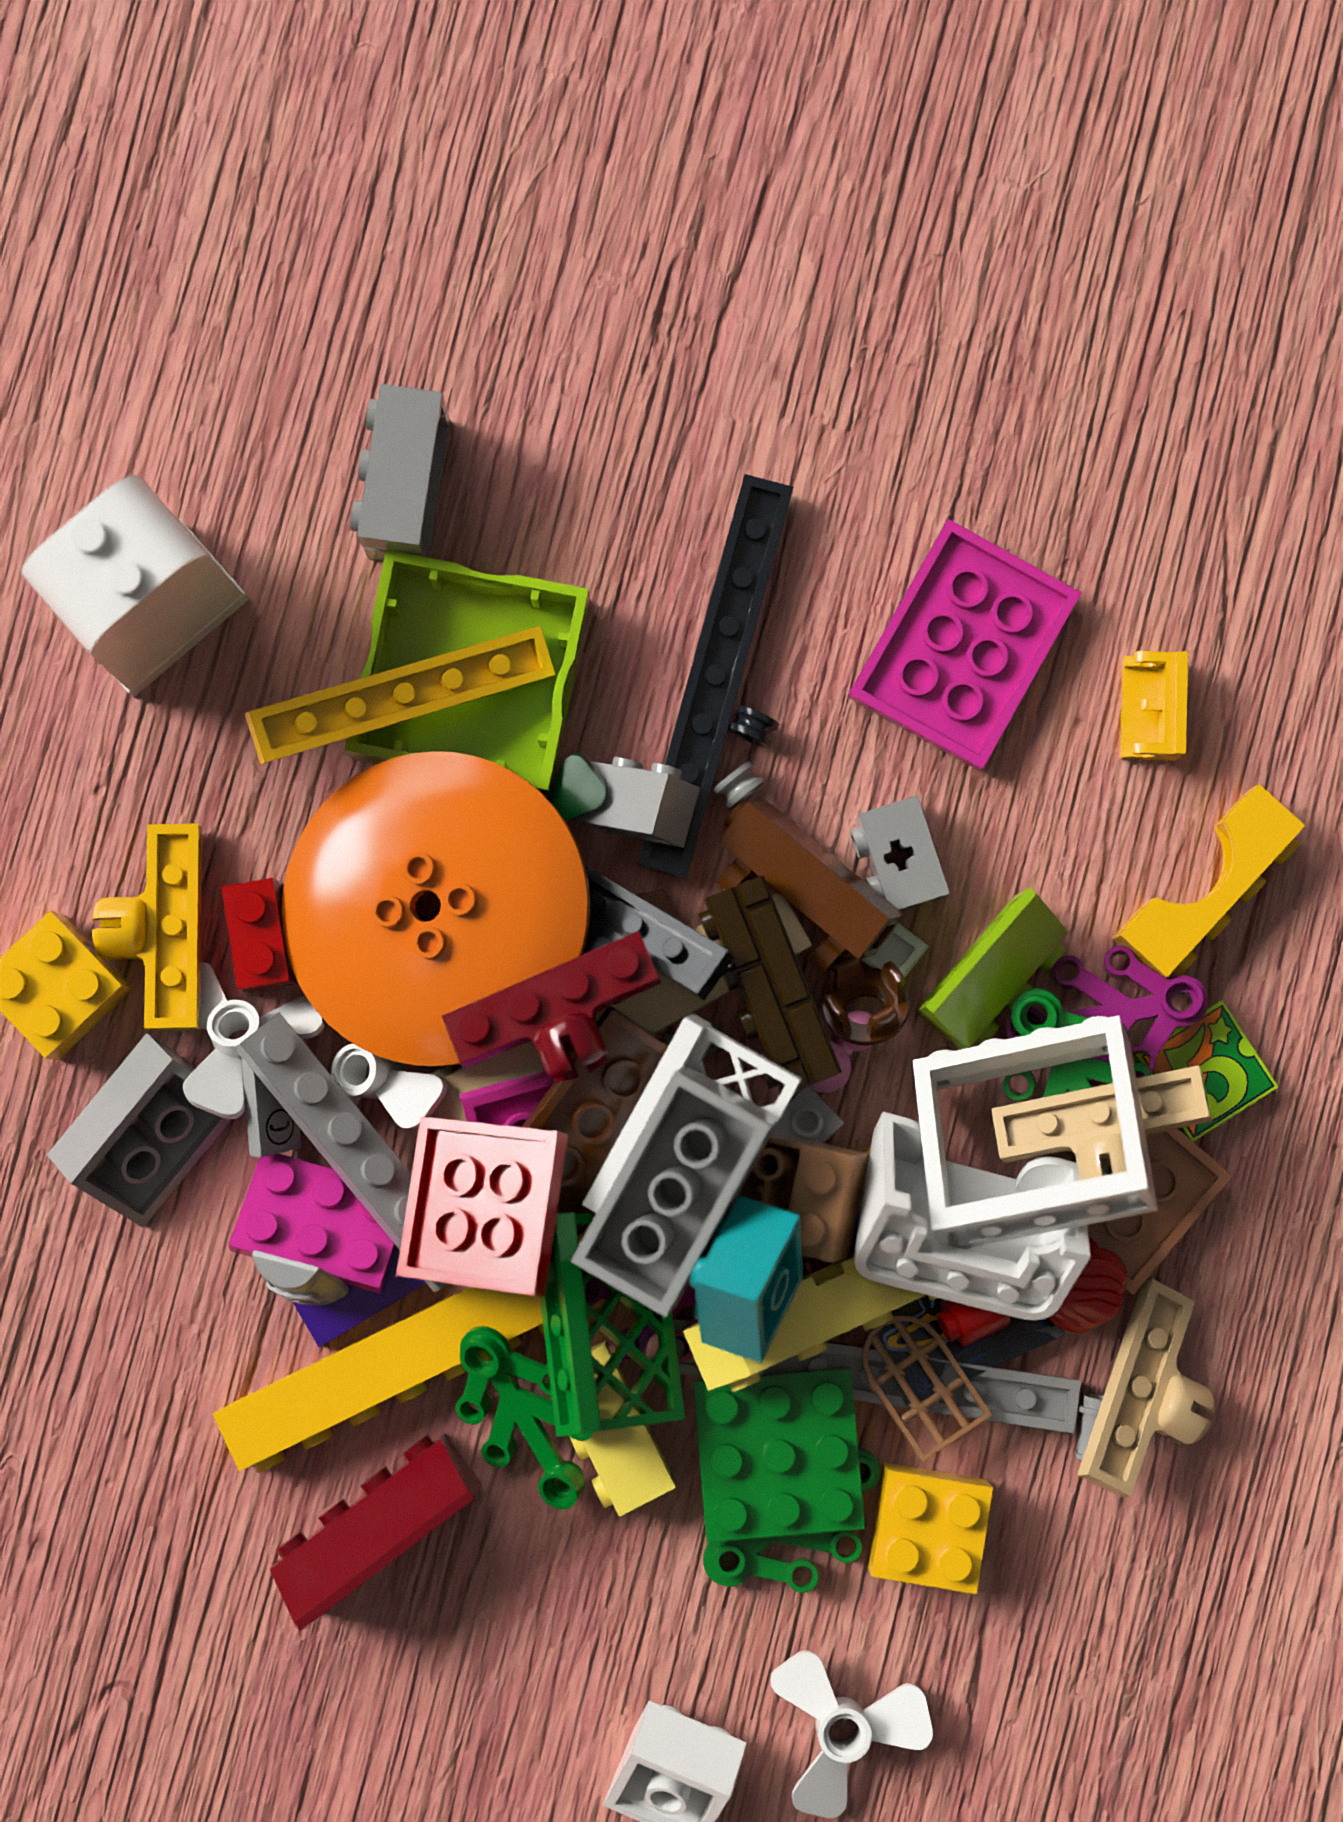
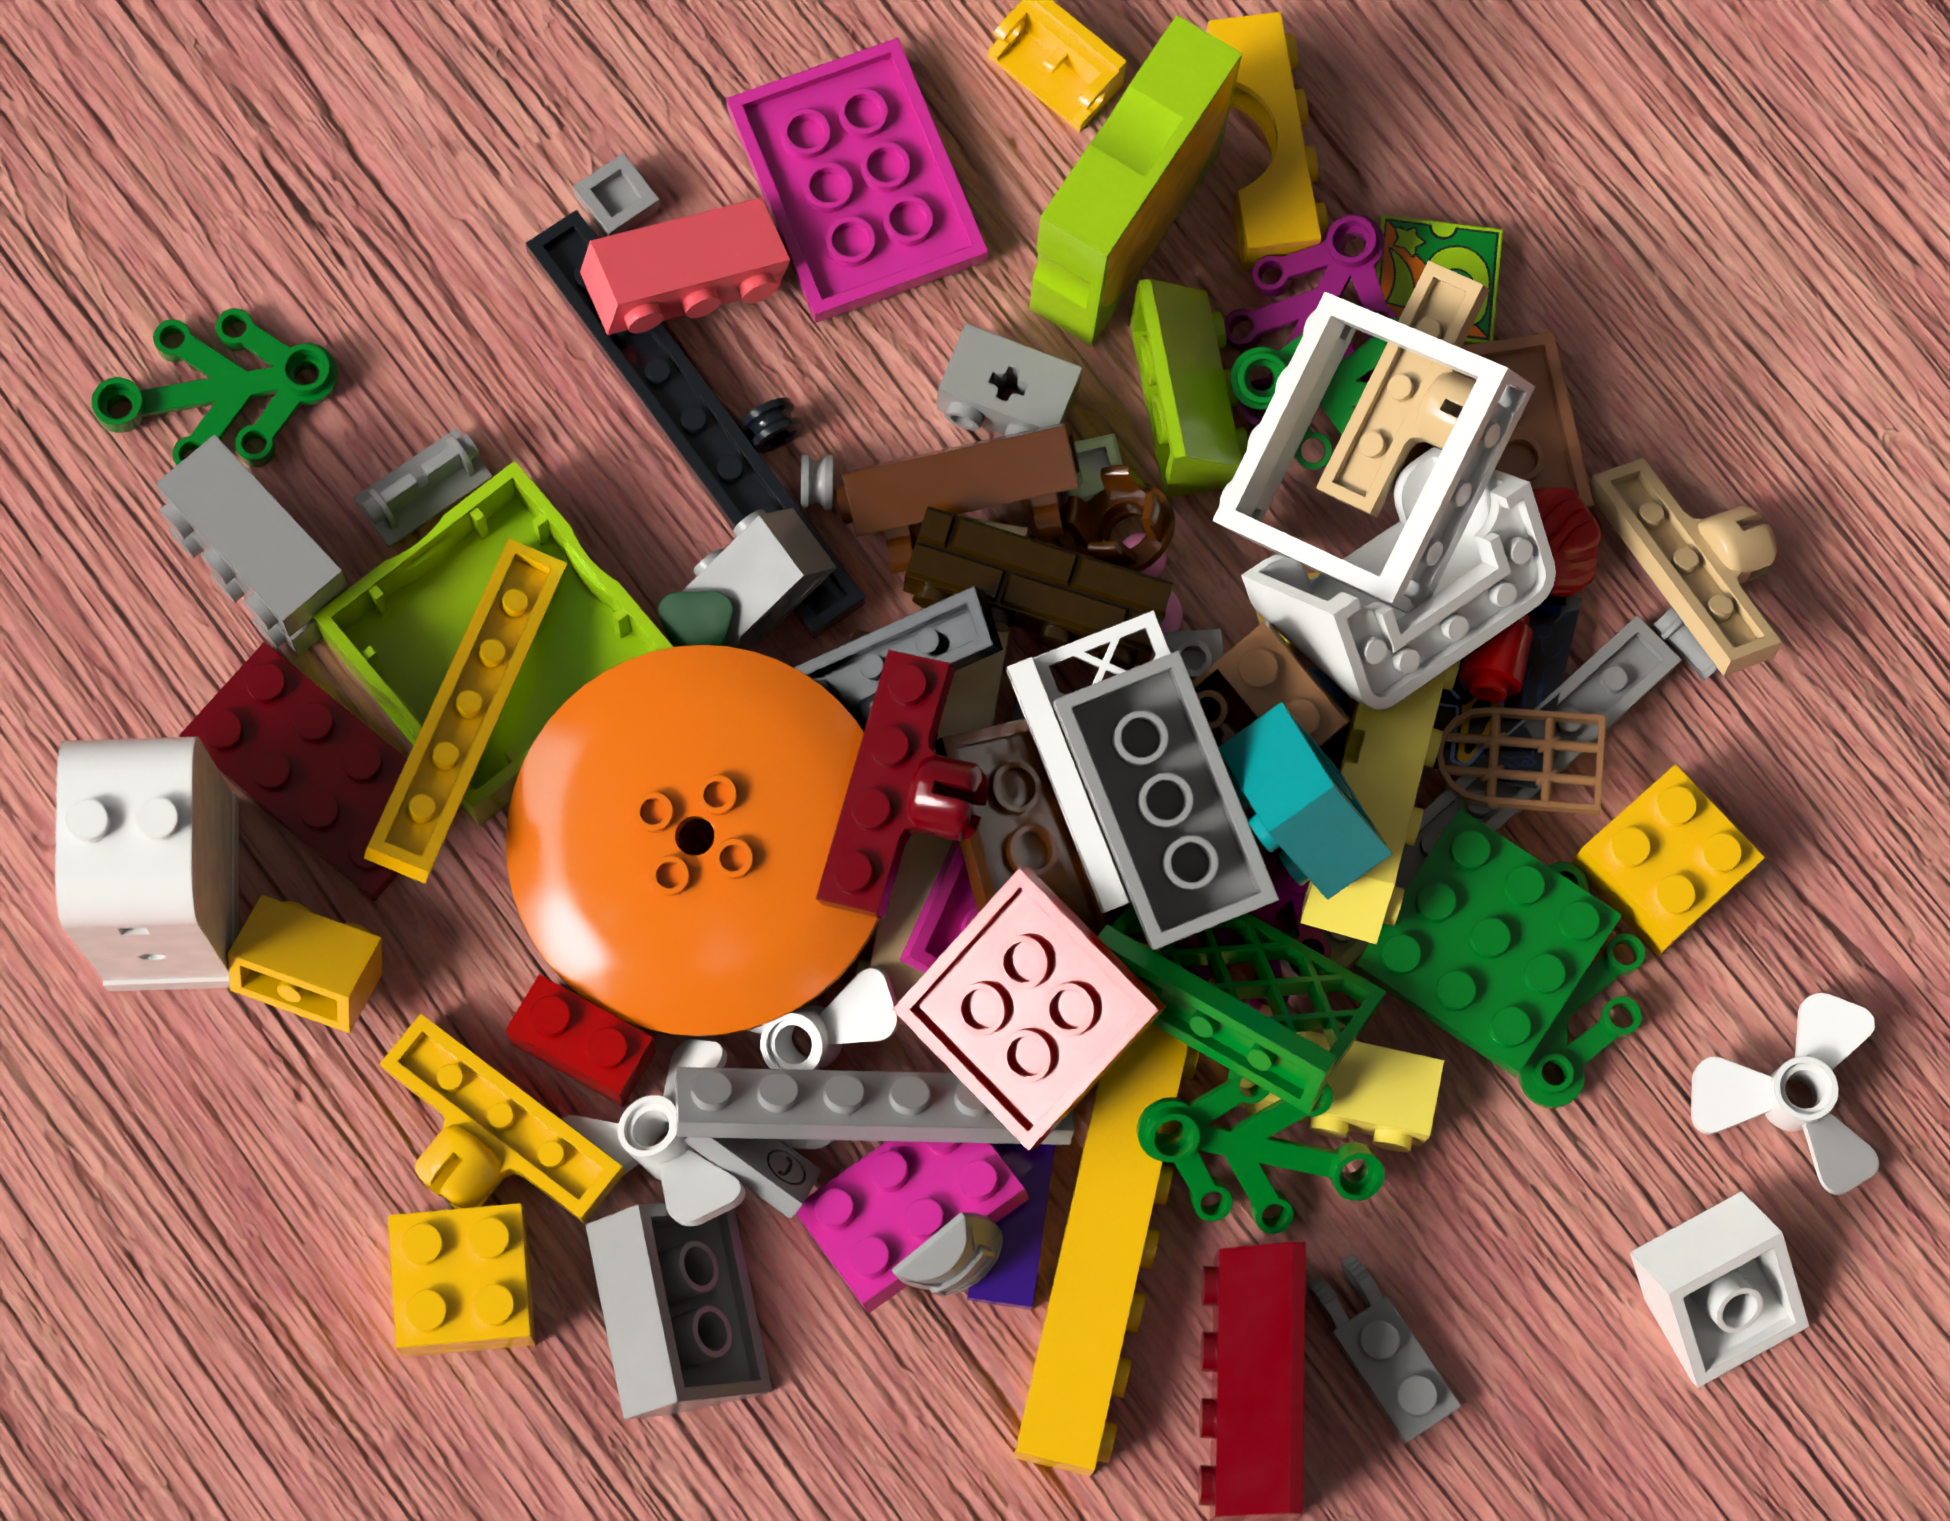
camera: 55 degrees left, 10 degrees down
(172, 727) = (305, 963): none -> yellow brick
(302, 613) = (303, 762): none -> dark red plate
(464, 1594) = (1385, 1355): none -> light grey hinge
(499, 371) = (227, 387): none -> green plant
(534, 544) = (423, 487): none -> light grey hinge
(808, 587) = (684, 266): none -> coral brick
(824, 504) = (616, 196): none -> light grey plate
(1097, 828) = (1133, 180): none -> lime tile

